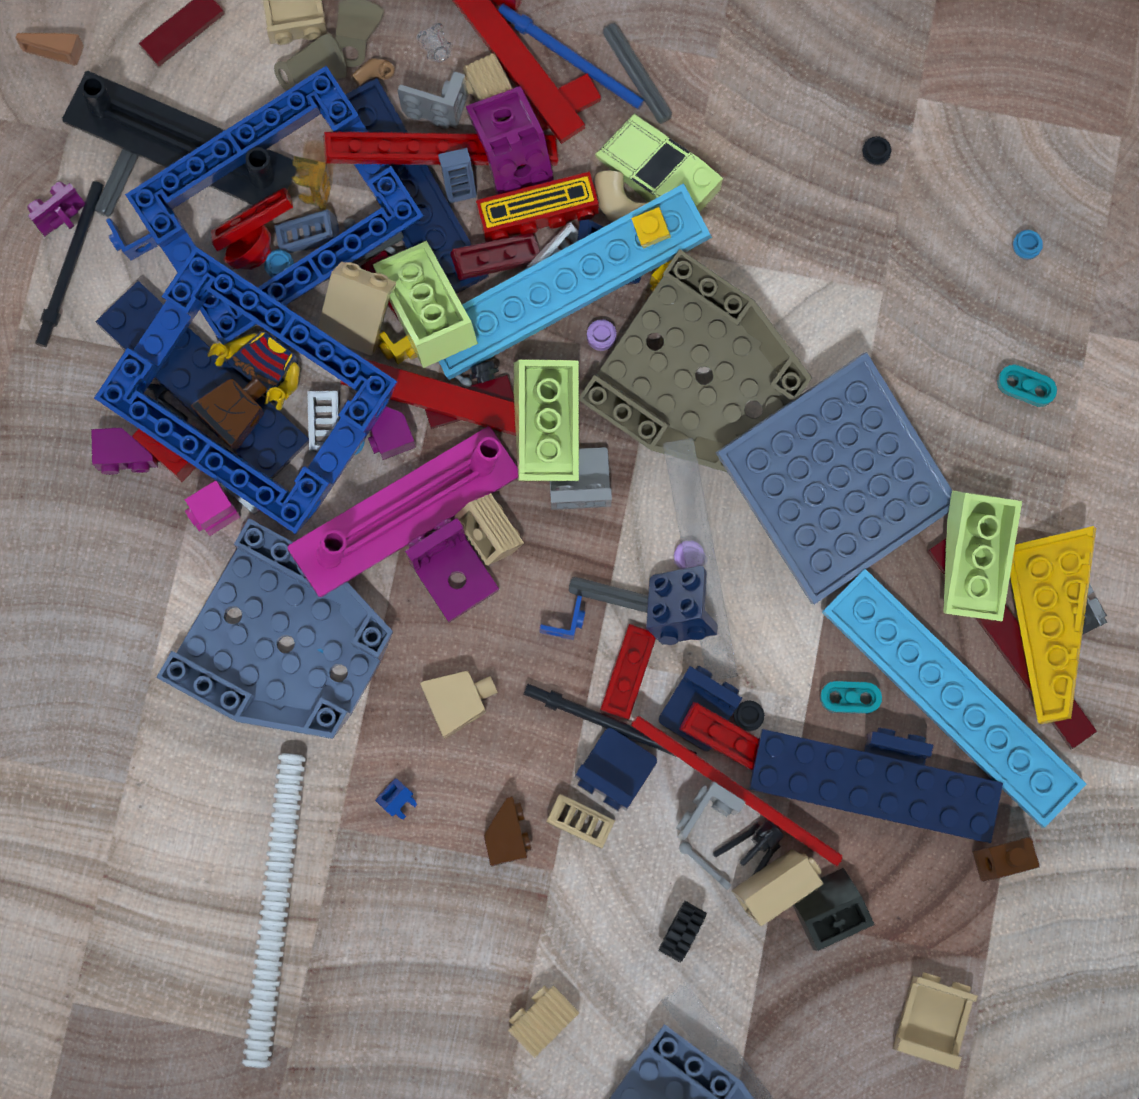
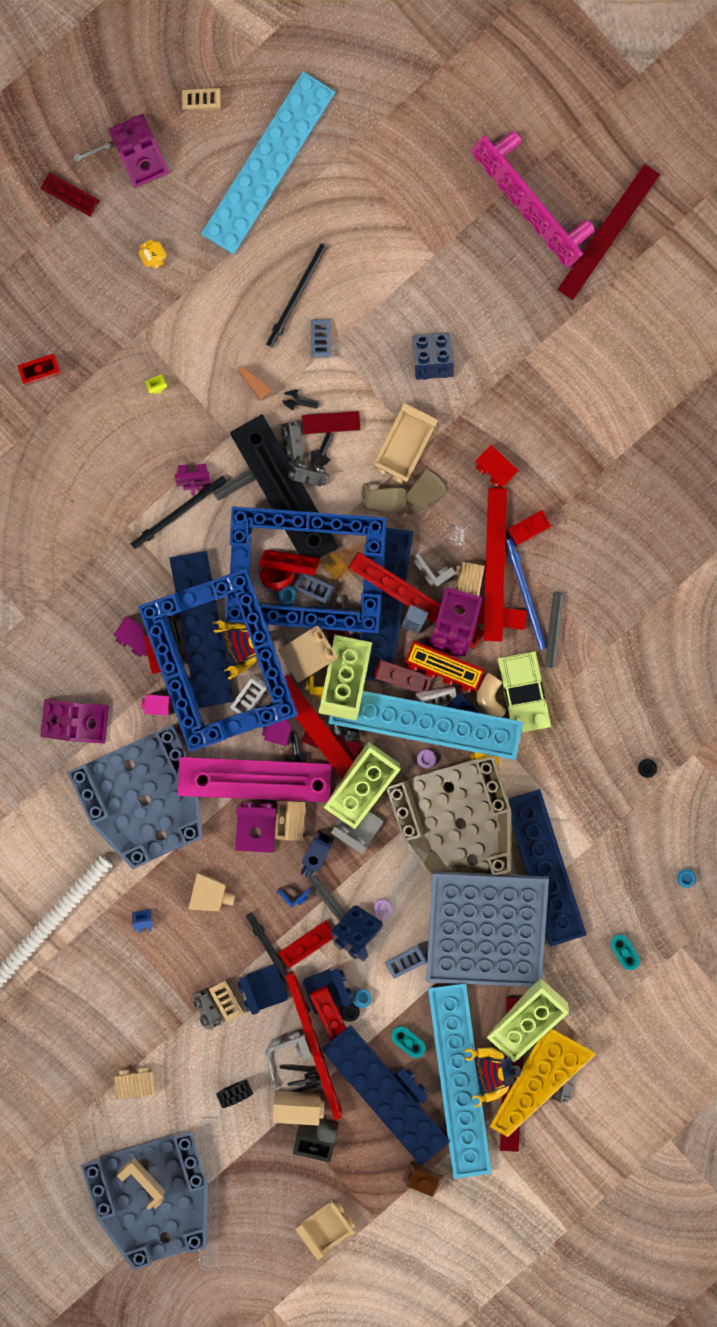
camera: 40 degrees right, 10 degrees up
(119, 609) = (73, 721): none -> magenta bracket
(122, 32) = (299, 401): none -> black bar
(130, 250) = (212, 521): blue bracket -> none
(140, 73) = (290, 432): none -> dark grey hinge
(185, 102) = (302, 470): none -> dark grey hinge
(196, 69) = (322, 451): none -> black bar
(232, 410) = (204, 662): reddish brown torso -> none
(373, 69) = (416, 522): medium nougat arm -> none
(429, 440) = (296, 749): none -> black bar
(504, 836) = (182, 979): reddish brown slope -> none
(554, 533) = (319, 848): none -> dark blue torso
(574, 860) = (202, 1002): none -> dark grey hinge
(651, 227) = (487, 732): yellow plate -> none
(750, 687) = (361, 998): none -> dark azure plate
(764, 583) = (411, 951): none -> sand blue slope
(831, 341) = (543, 858): none -> dark blue plate
(988, 653) = (493, 1073): none -> torso

